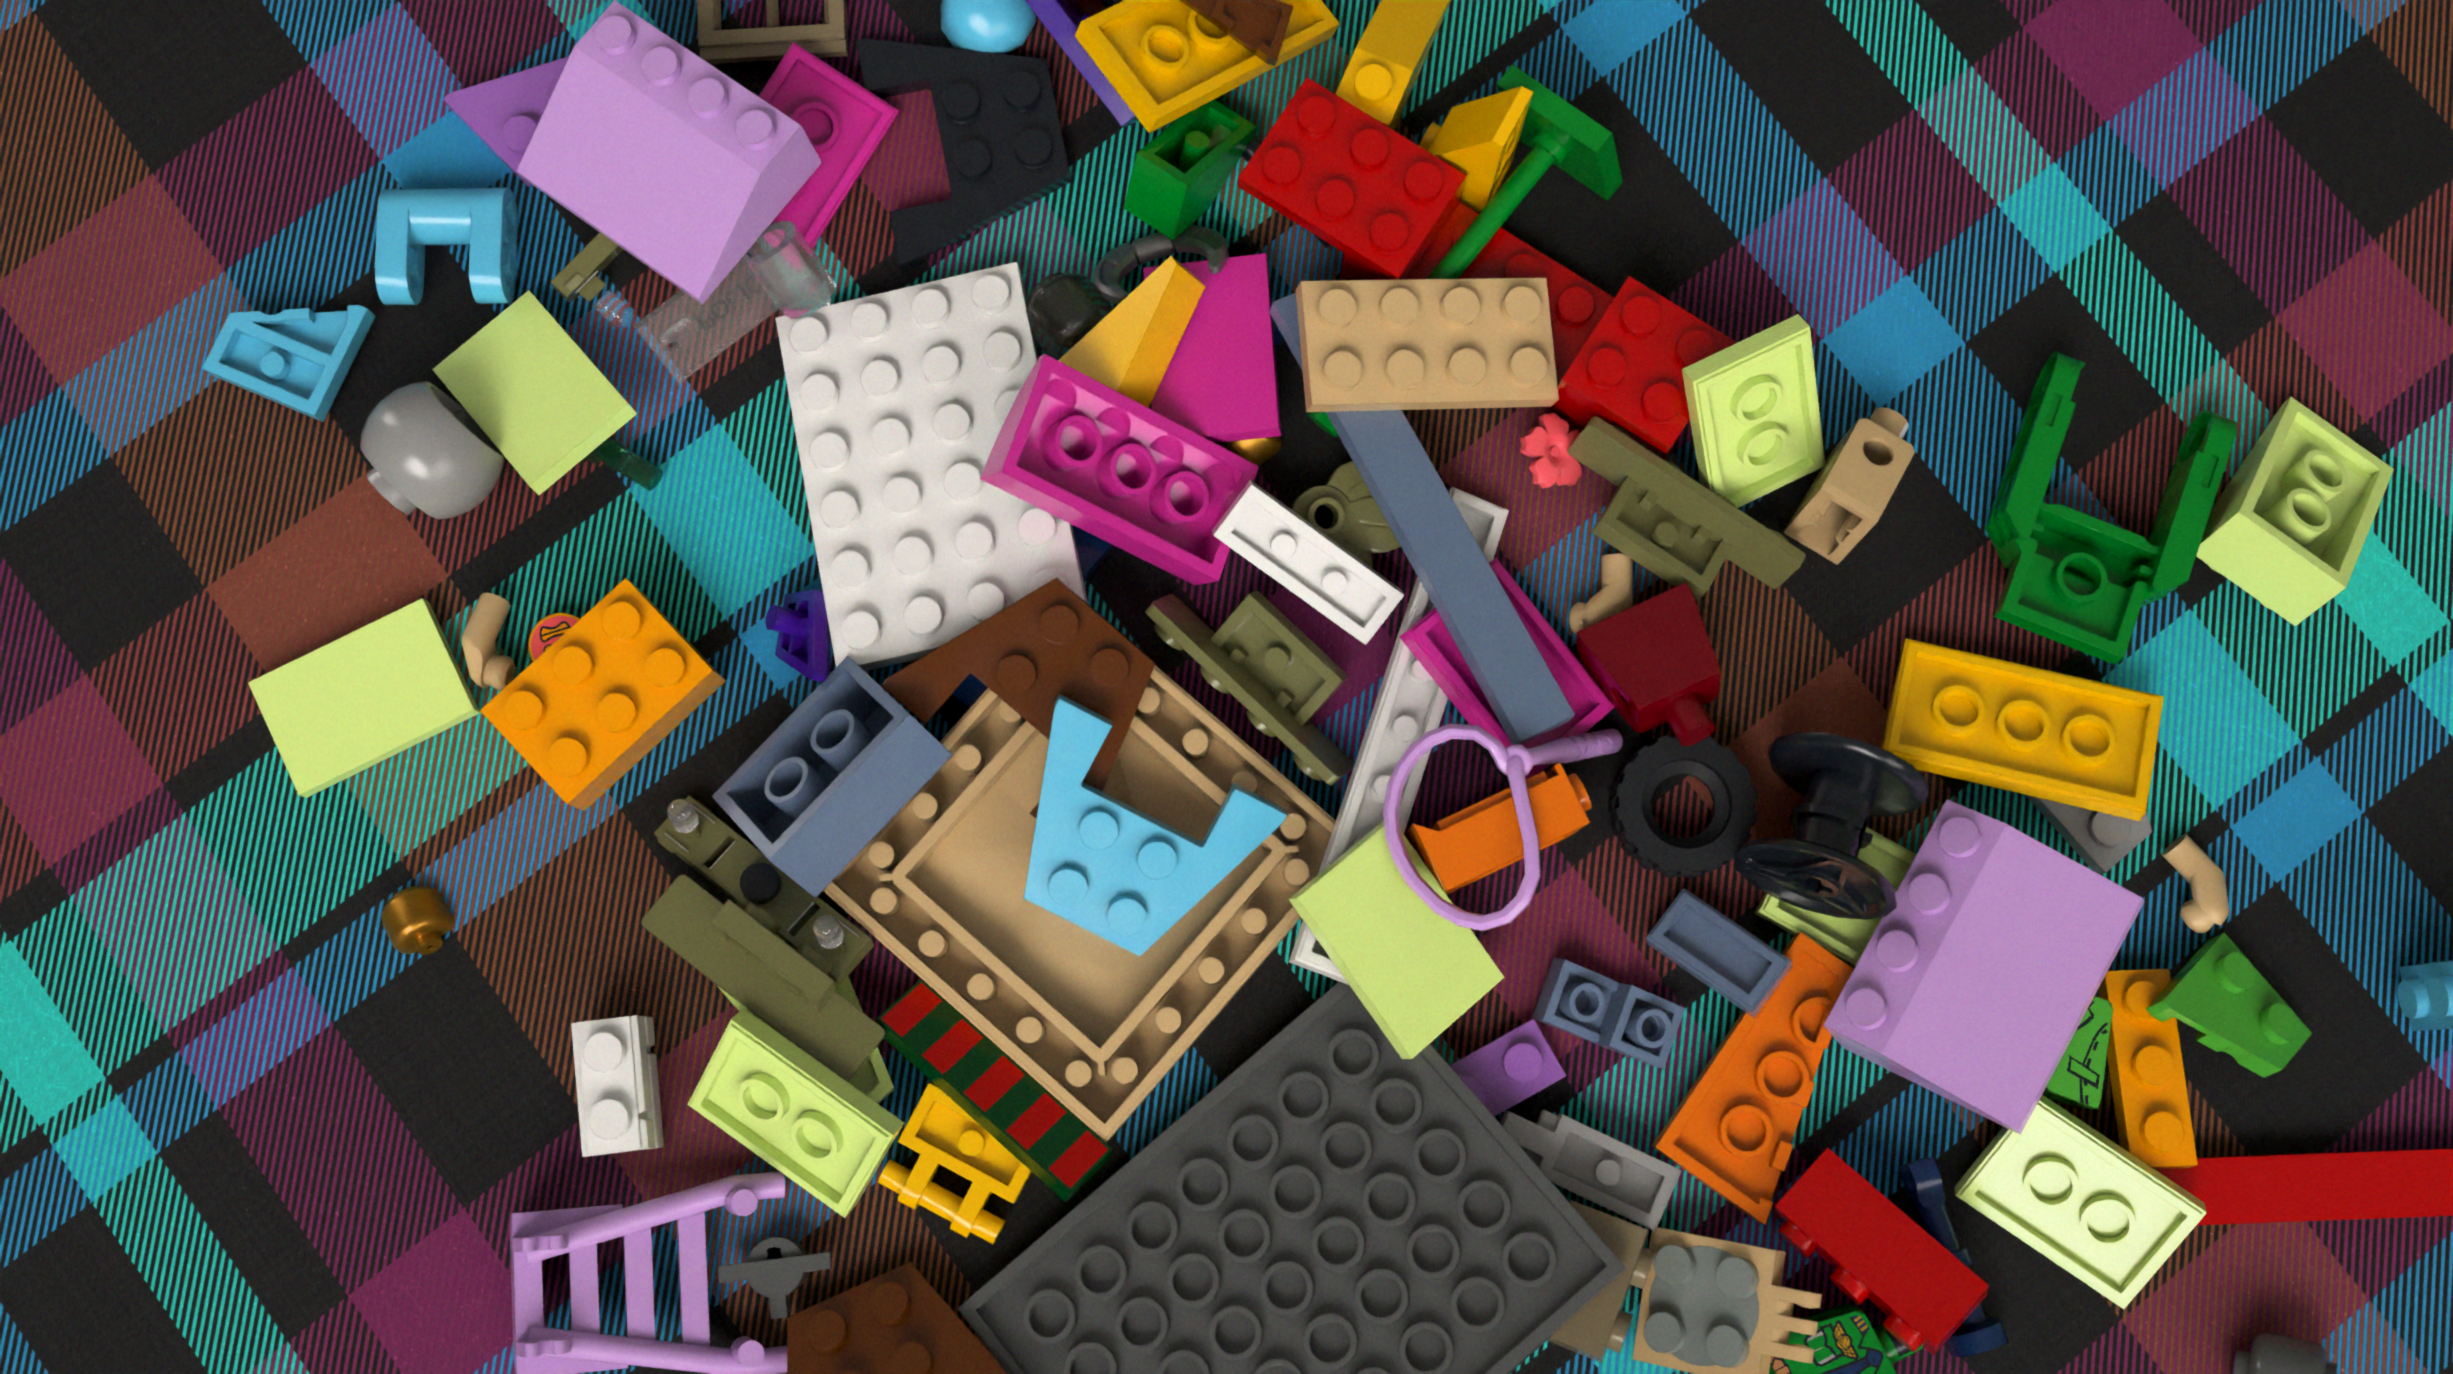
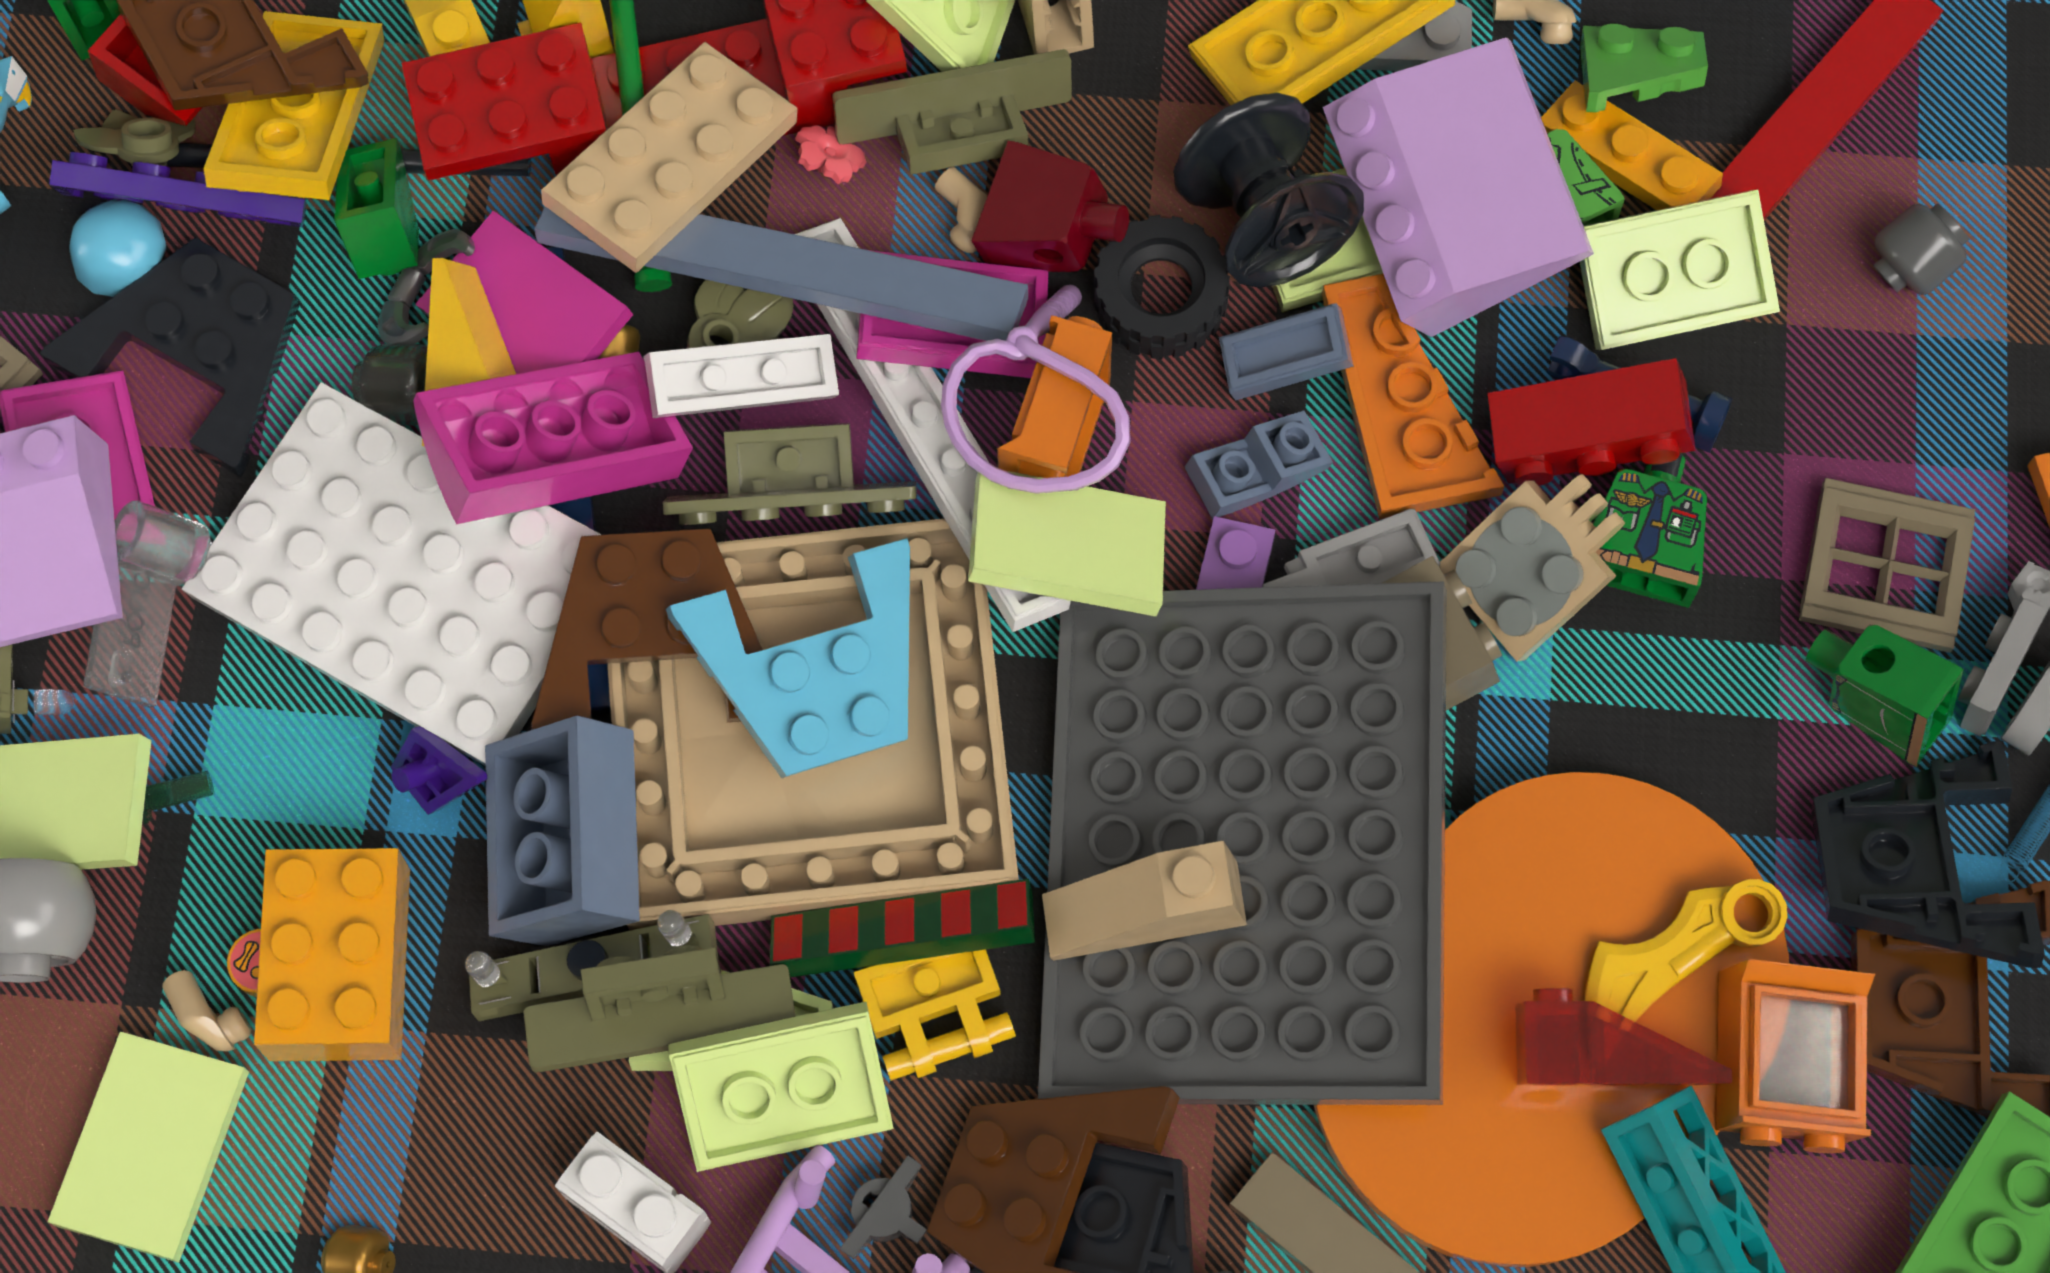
camera: 45 degrees left, 10 degrees down
(1165, 1263) = (1146, 902): none -> tan slope

